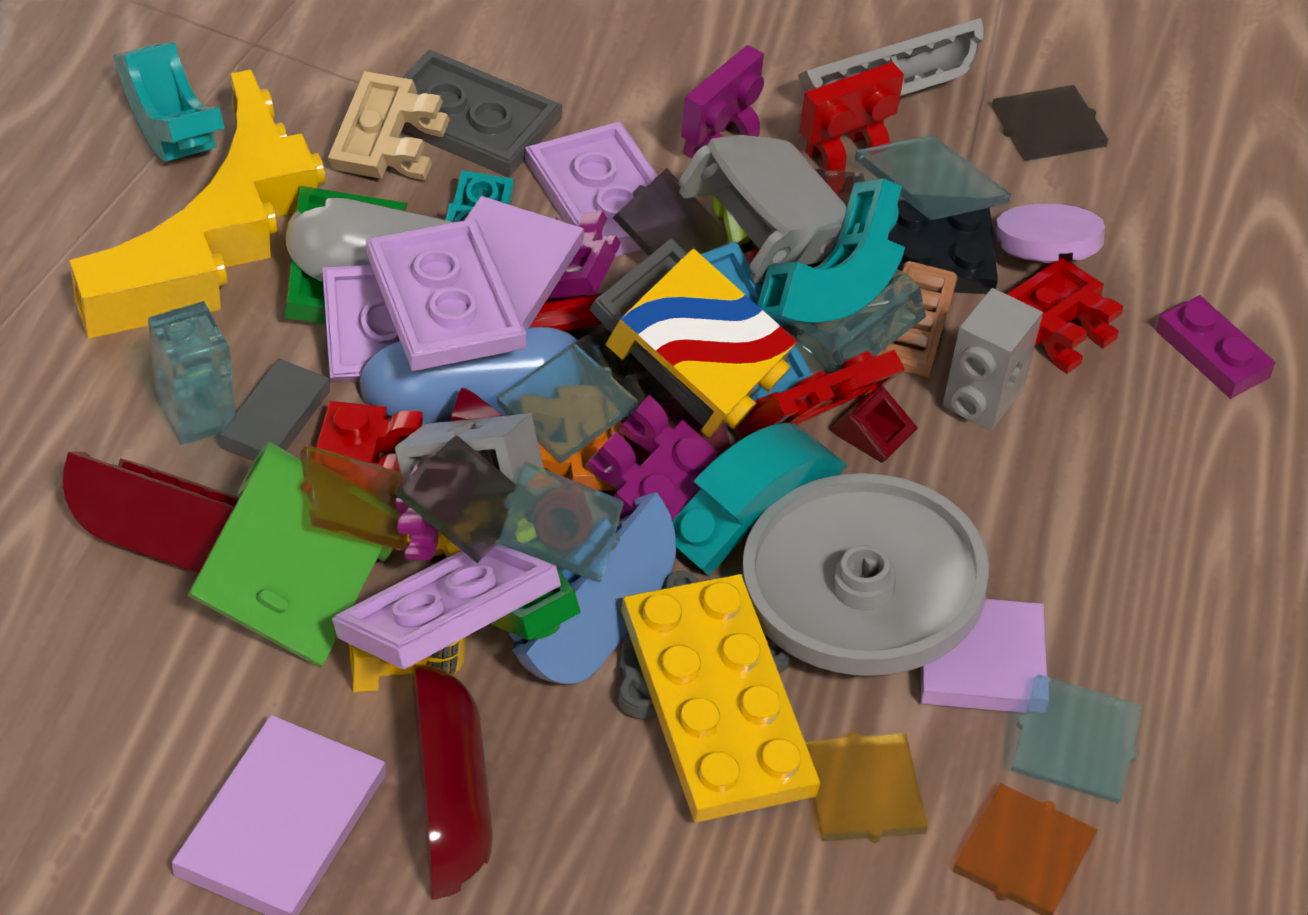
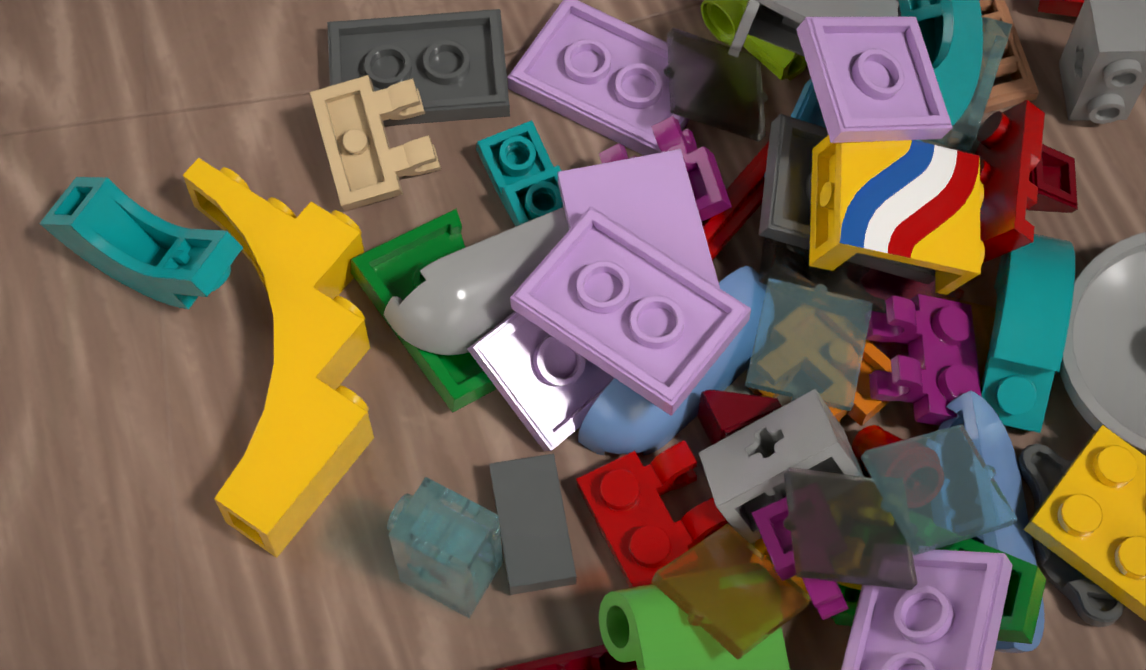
camera: 30 degrees left, 15 degrees up
(745, 235) = (873, 79): none -> lavender tile

